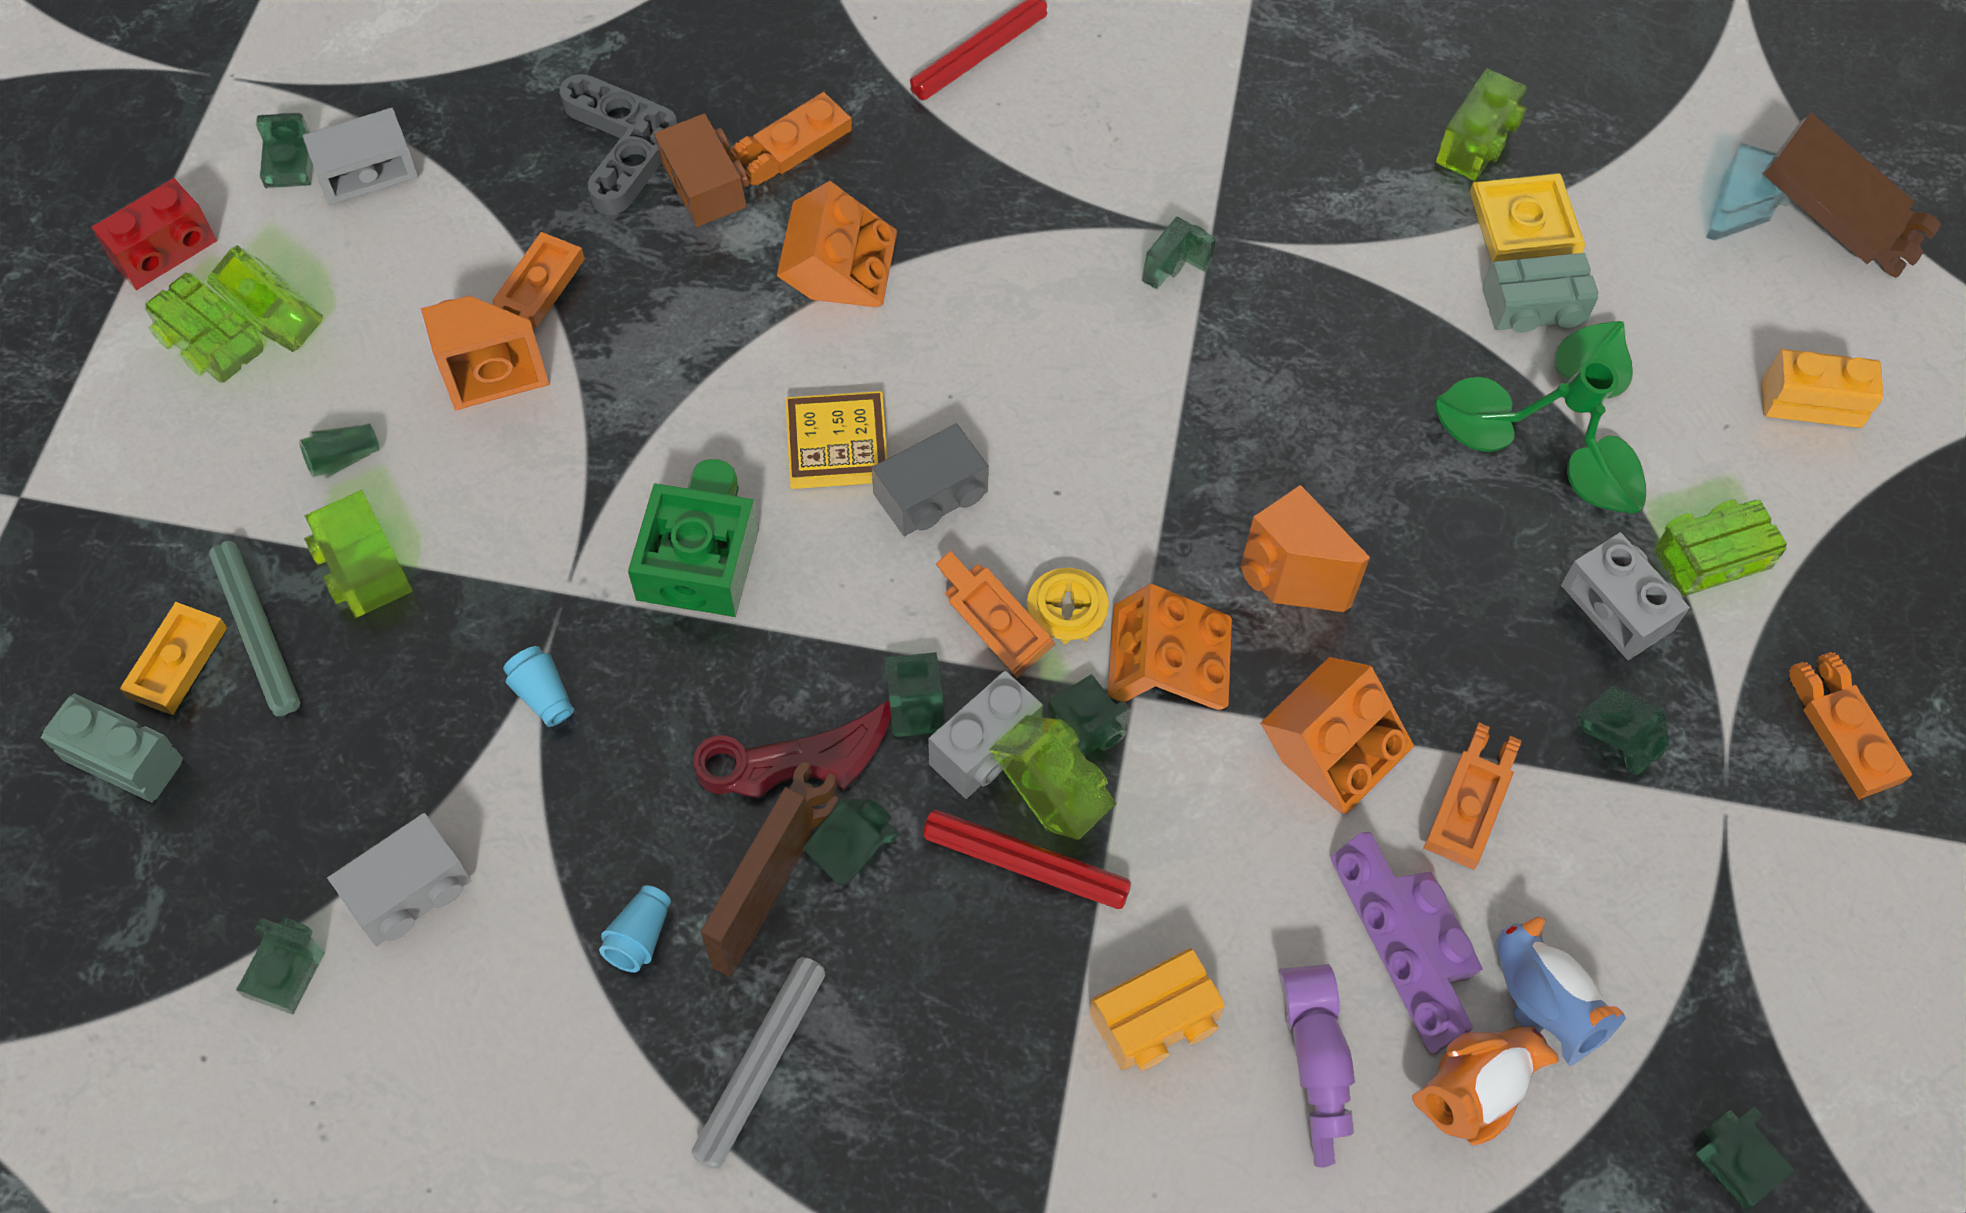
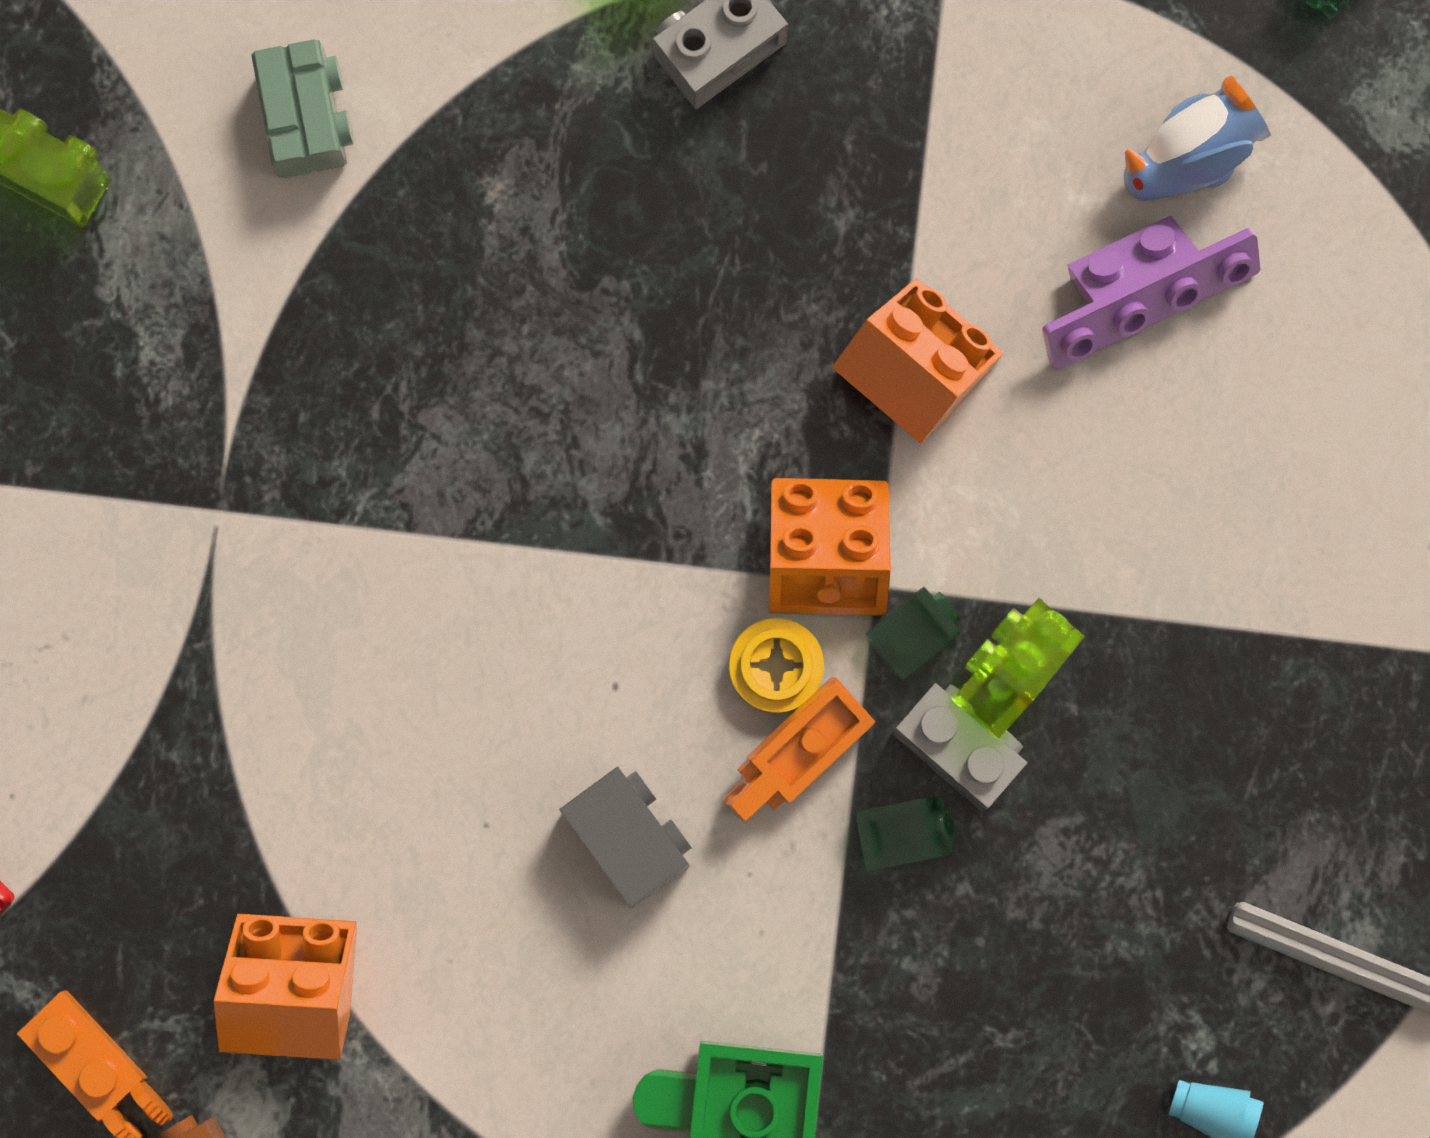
camera: 90 degrees left, 20 degrees up
(758, 769) = (987, 924): dark red piece -> none
(766, 869) = (1152, 972): reddish brown tile -> none
(835, 438) = (566, 959): tile -> none
(850, 838) = (1089, 887): clear green bracket -> none
(1027, 859) = (1091, 695): red axle -> none
(1157, 1011) = (1255, 547): light orange brick -> none
(1175, 246) = (273, 560): clear green bracket -> none
(1302, 555) = (708, 399): orange slope -> none
(1321, 1054) = (1284, 380): medium lavender piece -> none
(1472, 801) = (979, 216): orange hinge -> none
(1483, 1081) = (1296, 218): orange animal -> none
(1526, 217) = (174, 119): yellow tile -> none
(1596, 369) = (395, 45): green plant -> none
(1628, 725) = (879, 50): clear green bracket -> none

